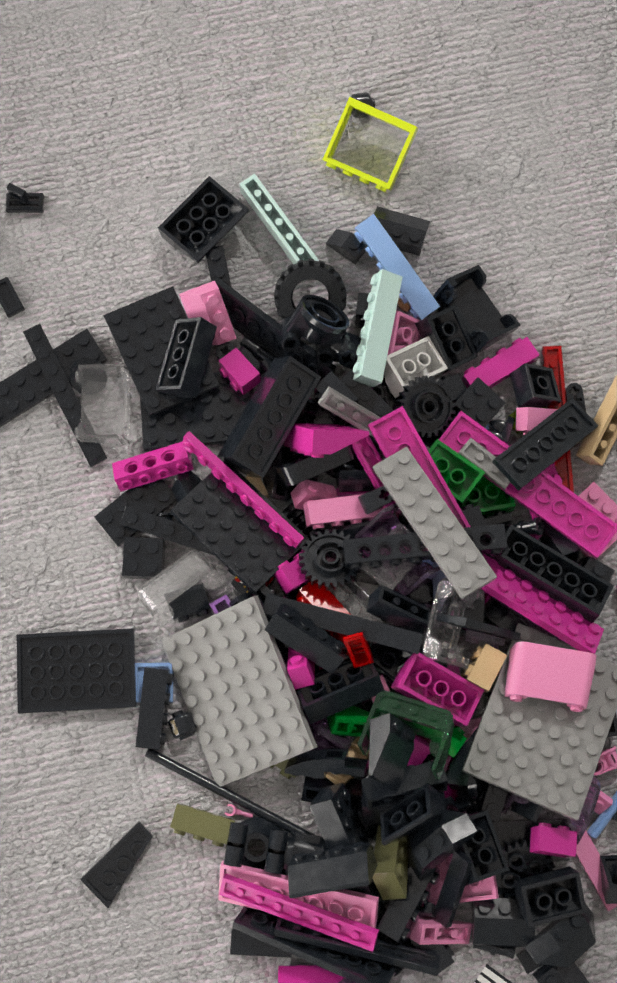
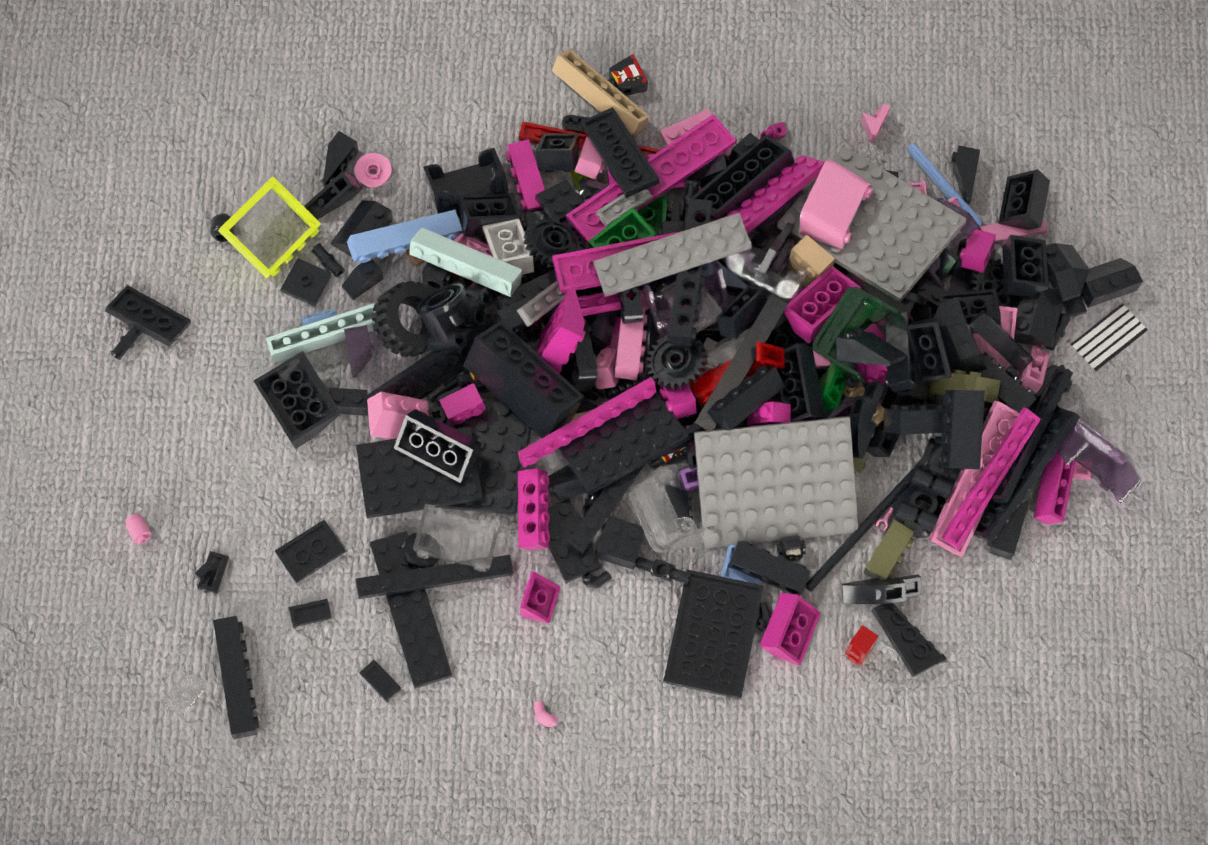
camera: 80 degrees left, 10 degrees down
(46, 125) = (138, 529): none -> bright pink brick
(66, 279) = (310, 551): none -> black tile
(69, 496) = (539, 598): none -> dark pink slope
(94, 818) = (861, 645): none -> red brick
(98, 744) = (790, 628): none -> dark pink slope
(102, 545) = (594, 581): none -> black arm
(104, 716) = (764, 618): none -> black arm
(127, 597) = (671, 573): none -> black axle
(155, 821) = (881, 591): none -> black slope
(223, 59) = (125, 343): none -> black pin
(253, 68) = (148, 315): none -> black tile
(269, 259) = (359, 348): none -> clear purple slope
(295, 217) = (311, 318): none -> light blue beam
(330, 196) = (306, 282): none -> black plate
(357, 208) = (327, 260): none -> black pin
(425, 193) = (334, 195): none -> black slope
(465, 213) = (369, 163): none -> bright pink dish
(469, 185) = (339, 153): none -> black slope

